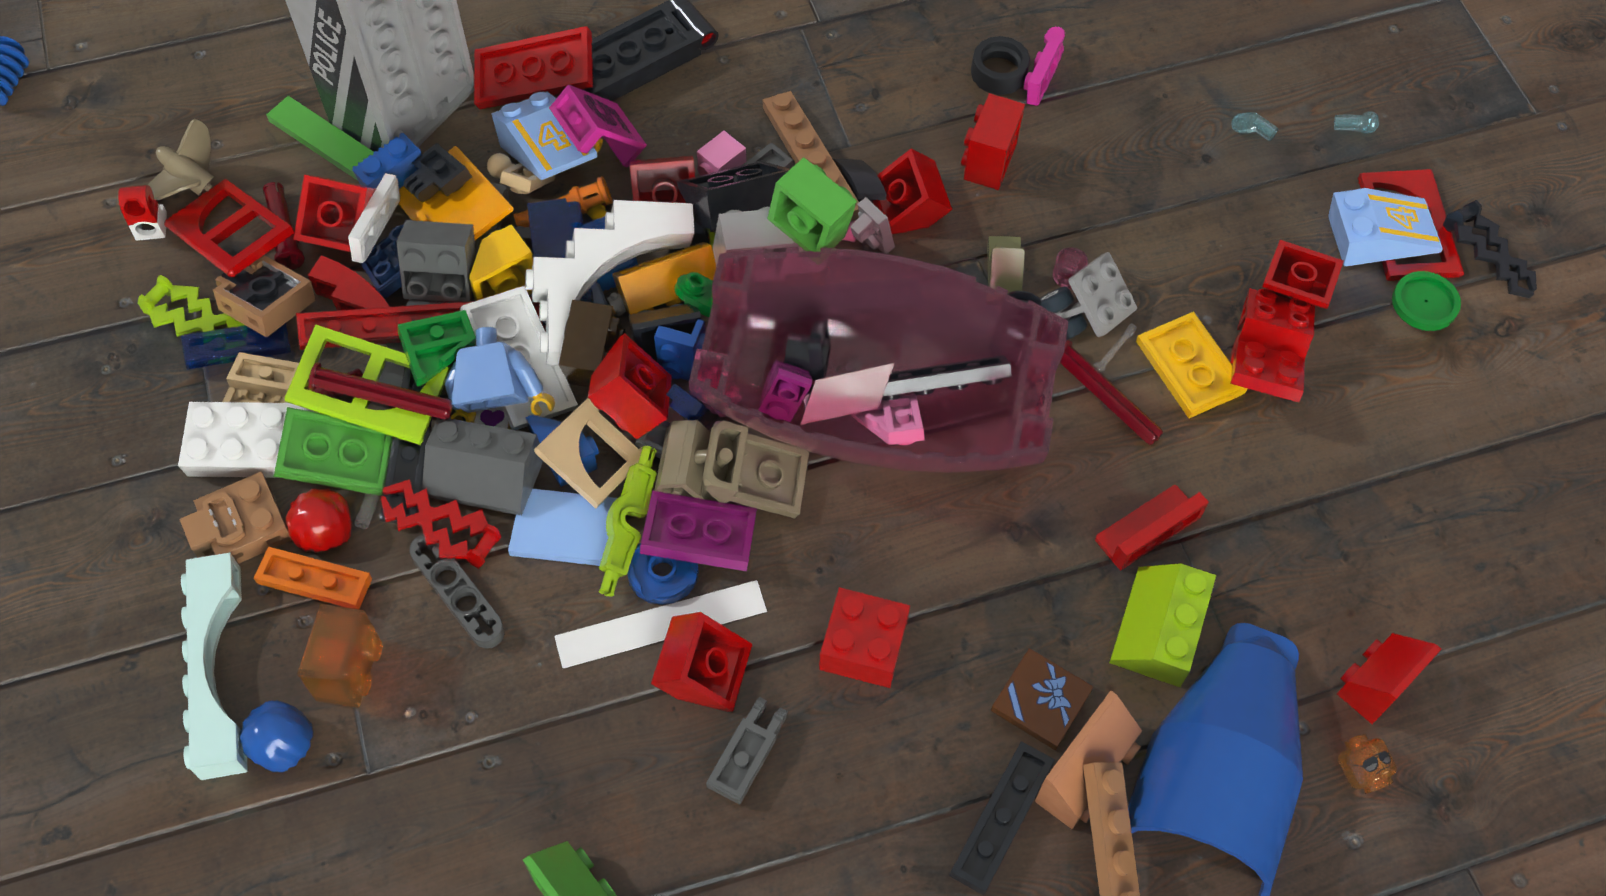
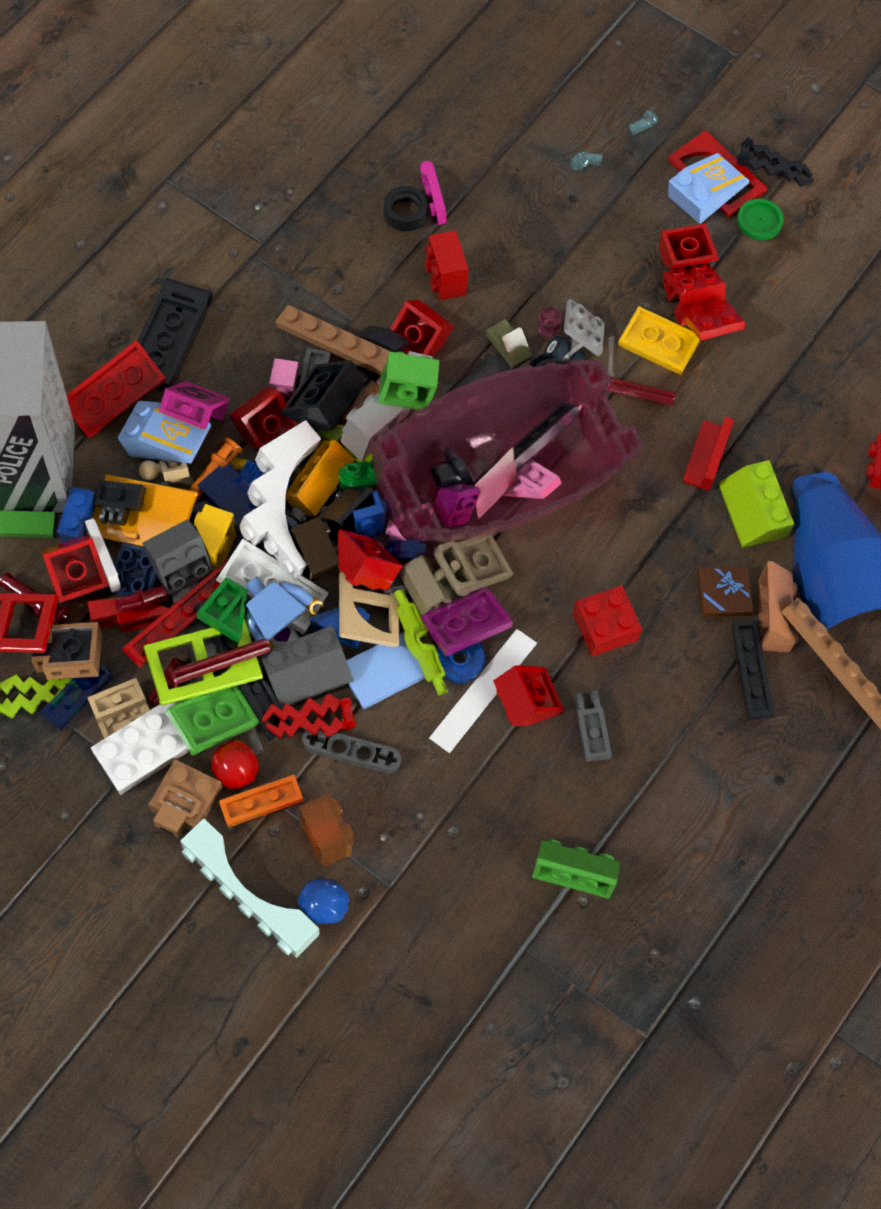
camera: 40 degrees left, 5 degrees up
(368, 283) = (141, 599): none -> dark red axle

